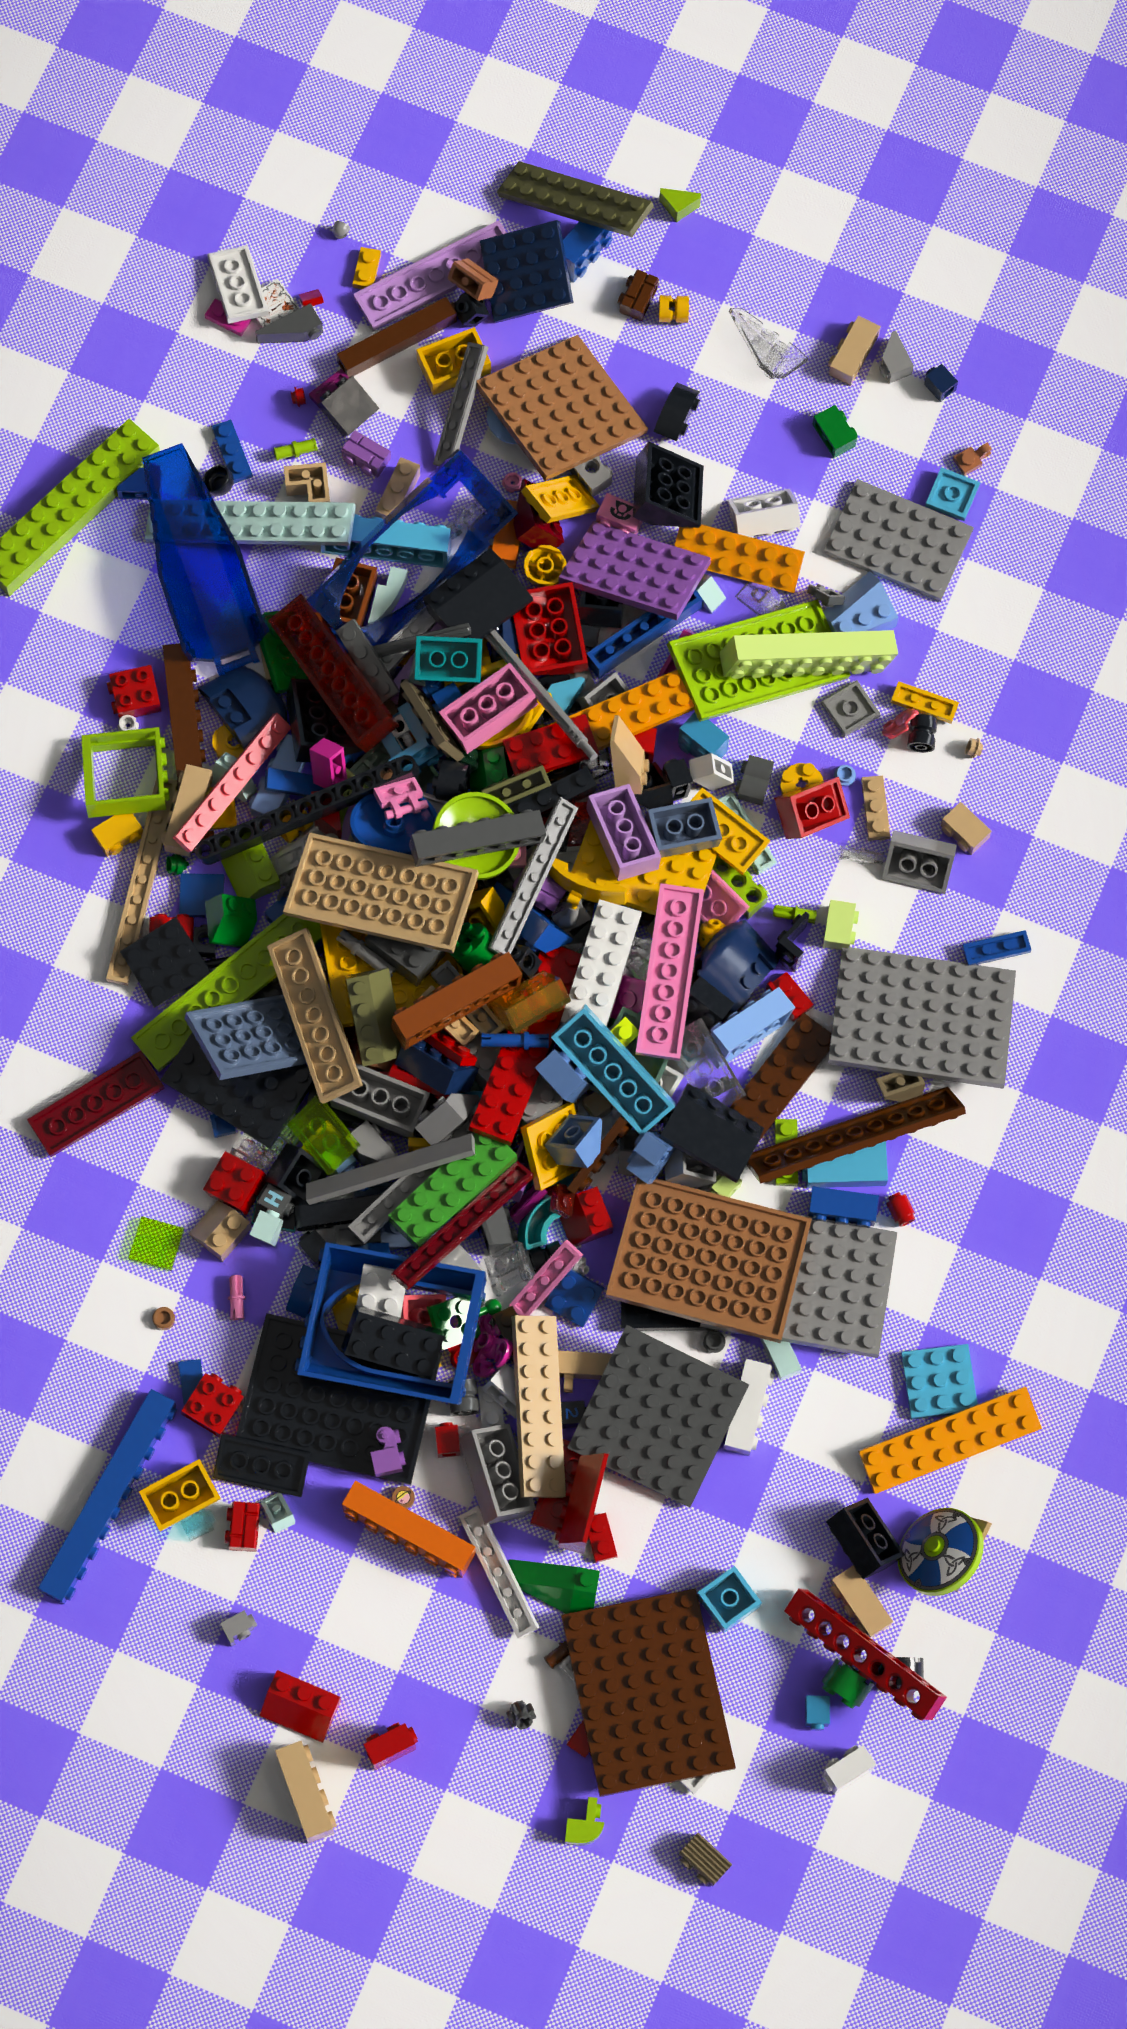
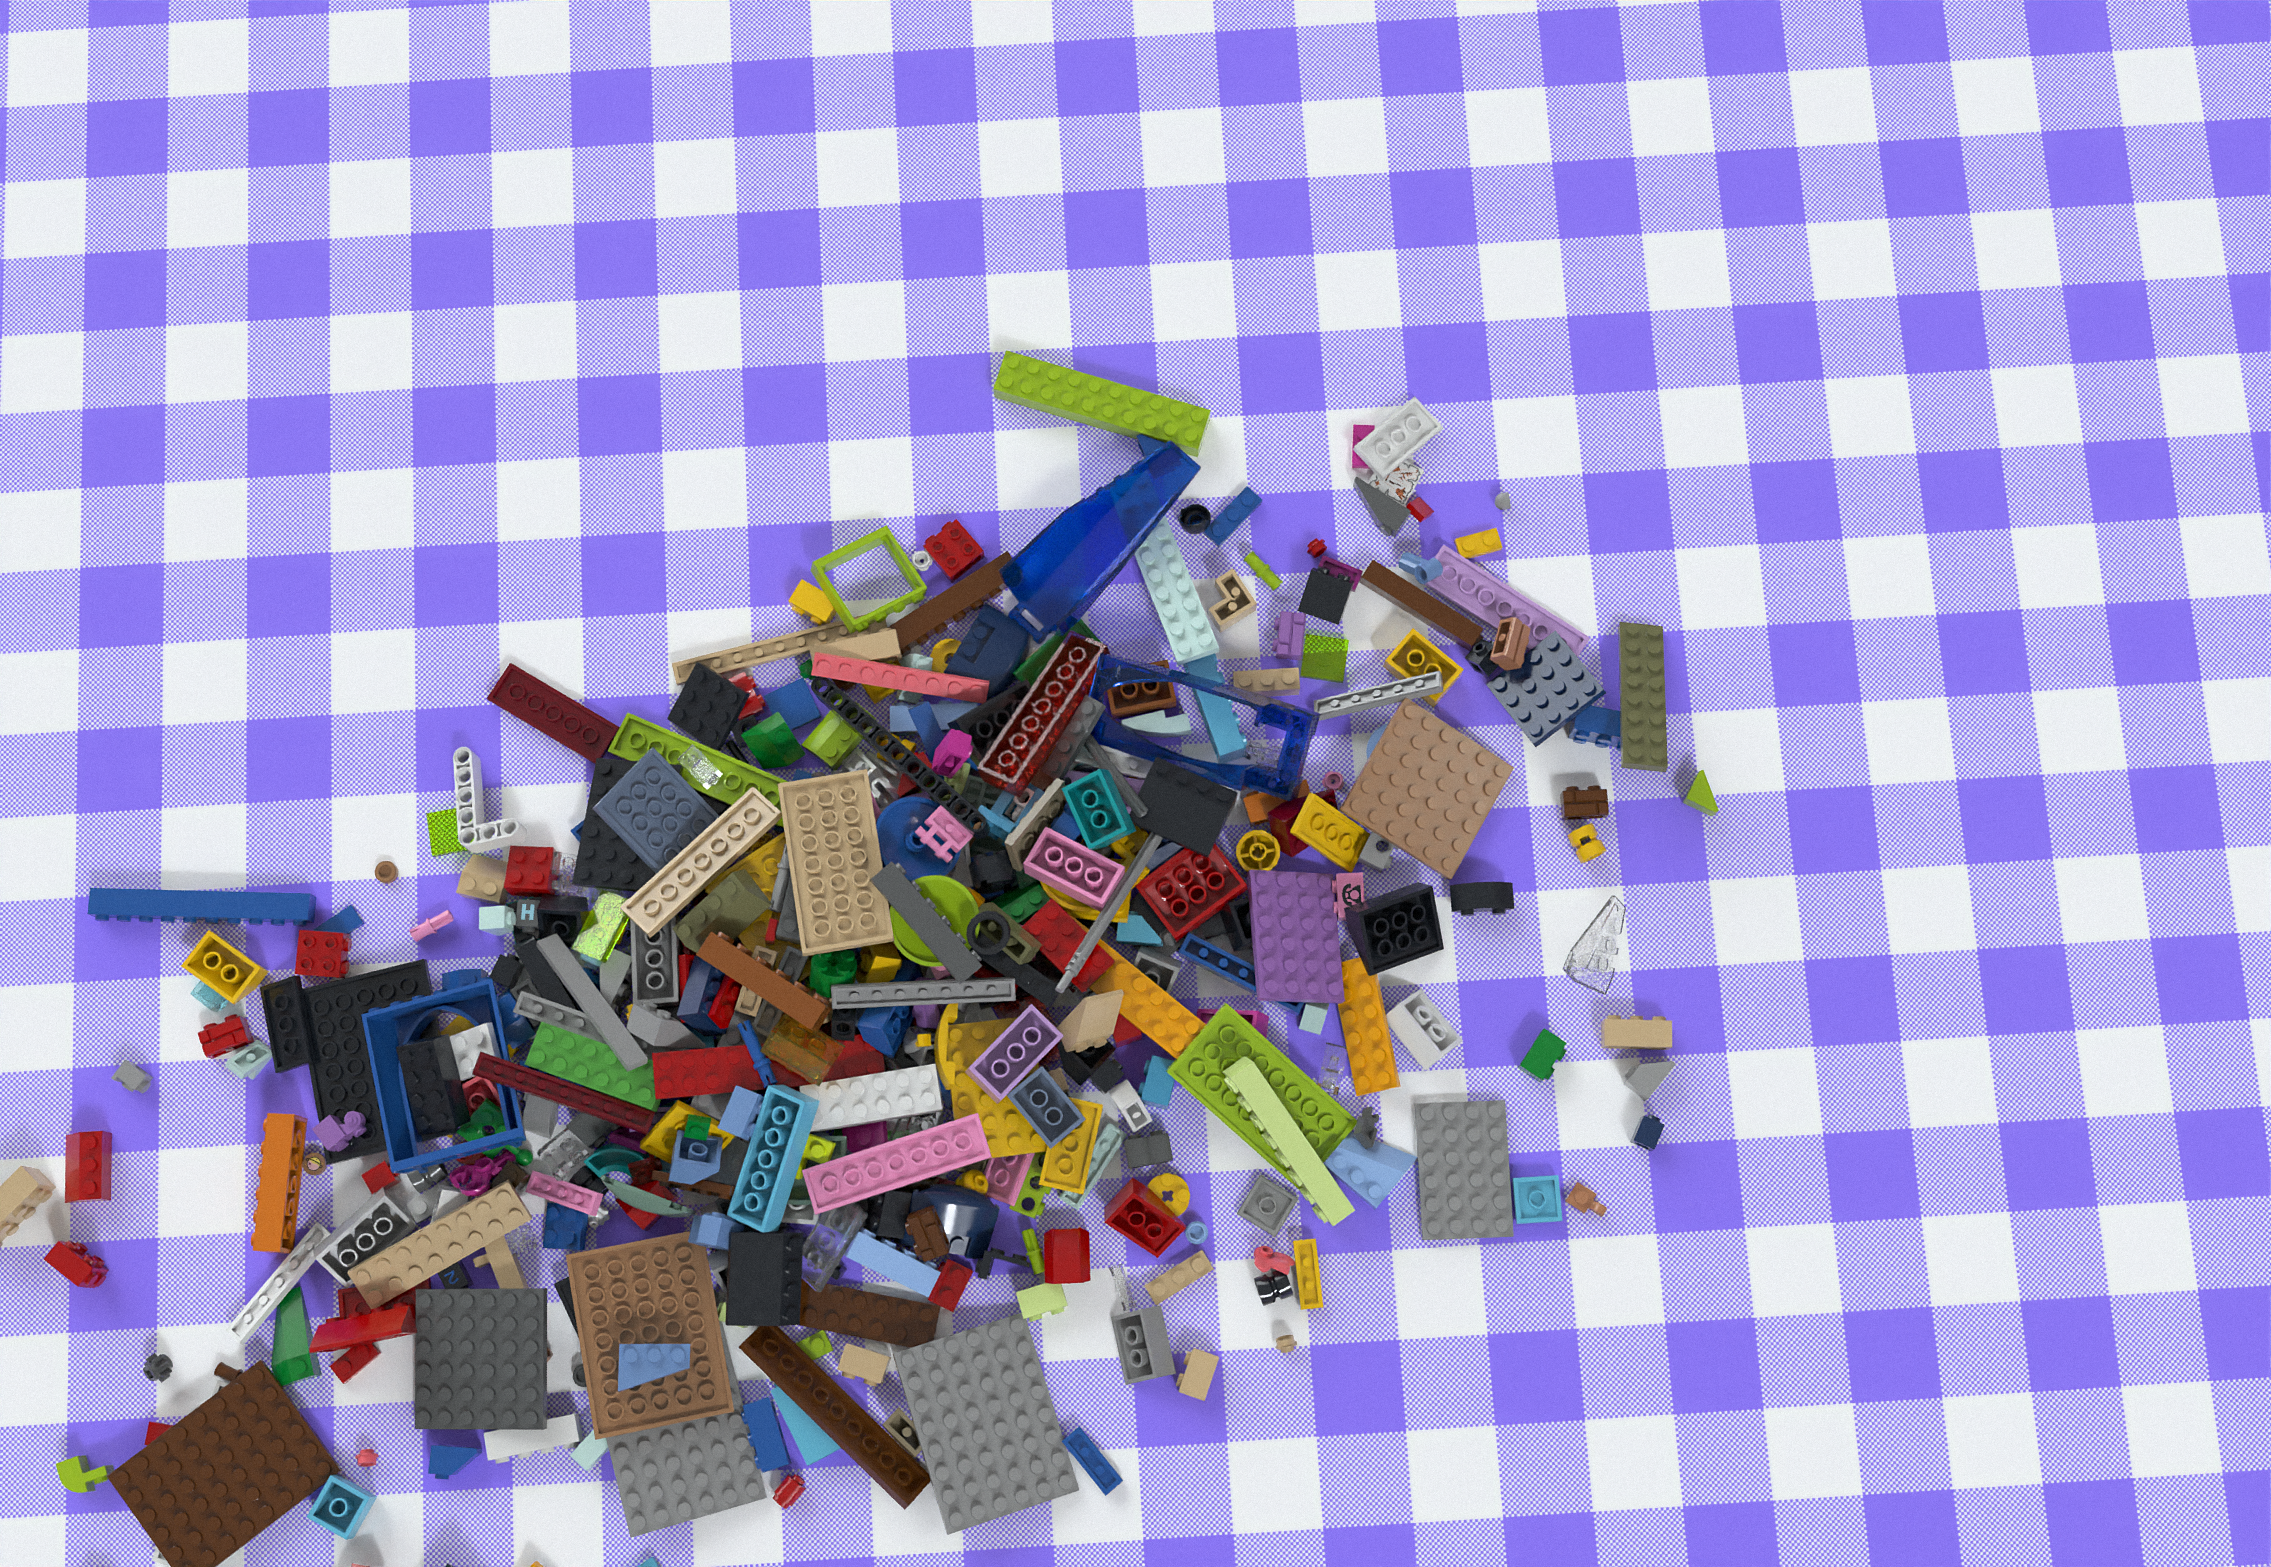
camera: 70 degrees right, 5 degrees up
(150, 1208) = (475, 809): none -> white beam
(219, 989) = (700, 767): none -> clear slope
(367, 318) = (1422, 569): none -> medium blue piece
(401, 436) = (1324, 658): none -> clear neon green tile
(410, 983) = (771, 931): none -> red tile
(521, 779) = (974, 943): none -> black tyre
(551, 1125) = (697, 1127): none -> green plate
(567, 1339) = (521, 1240): none -> clear brick
(591, 1198) = (644, 1200): none -> sand green slope
(694, 1563) = (366, 1458): none -> coral plate
(733, 1488) = (450, 1459): none -> blue slope
(736, 1263) = (650, 1362): none -> medium blue wedge
(741, 978) = (927, 1233): none -> reddish brown brick
(813, 885) = (1067, 1256): none -> red slope
(822, 1097) = (864, 1364): none -> tan brick

